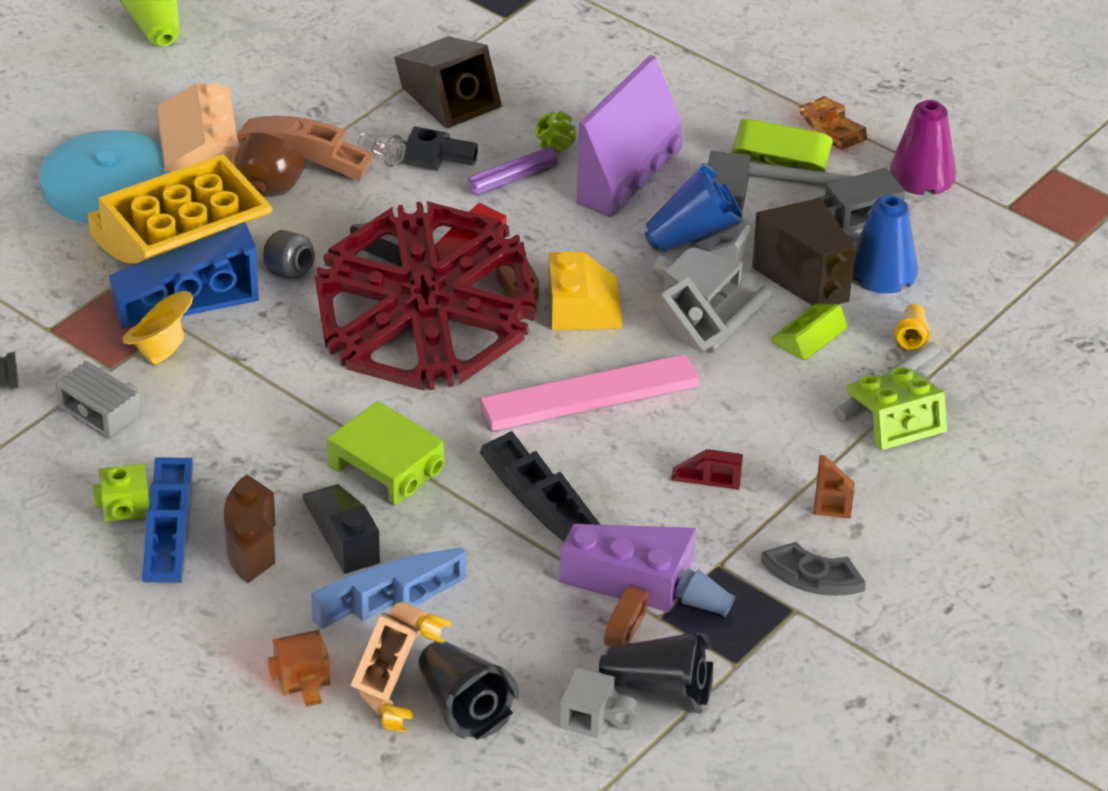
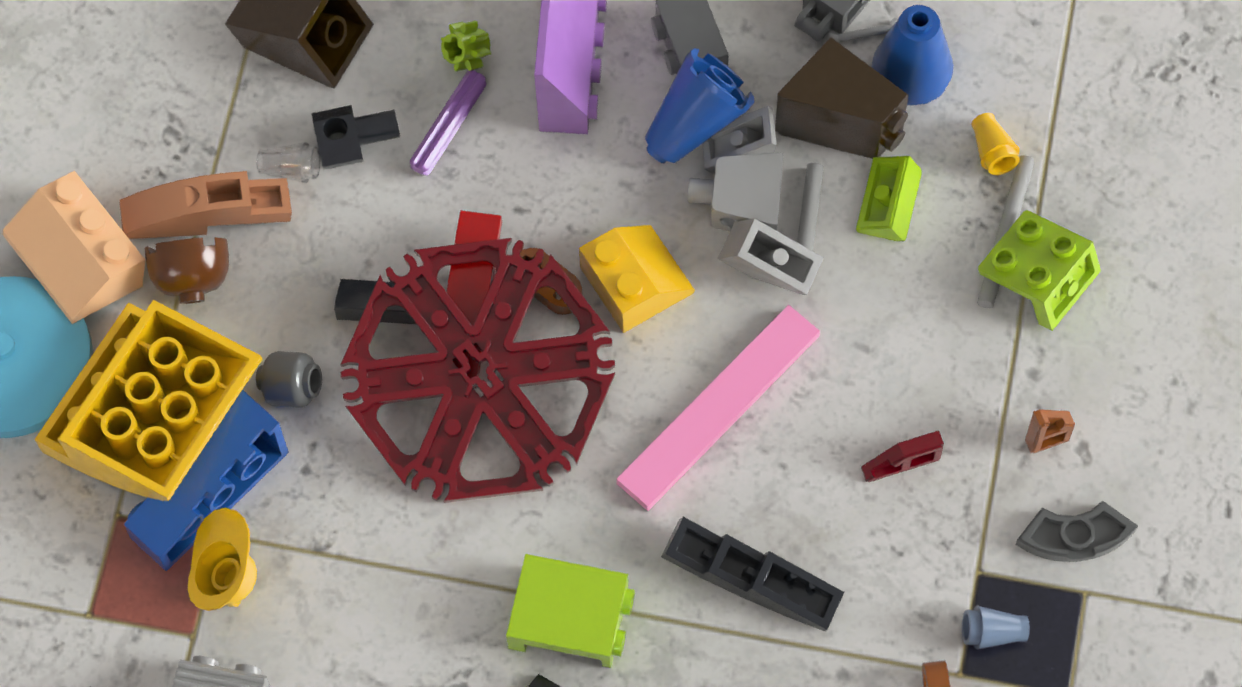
camera: 25 degrees left, 25 degrees up
(619, 555) = (903, 630): medium lavender wedge -> none

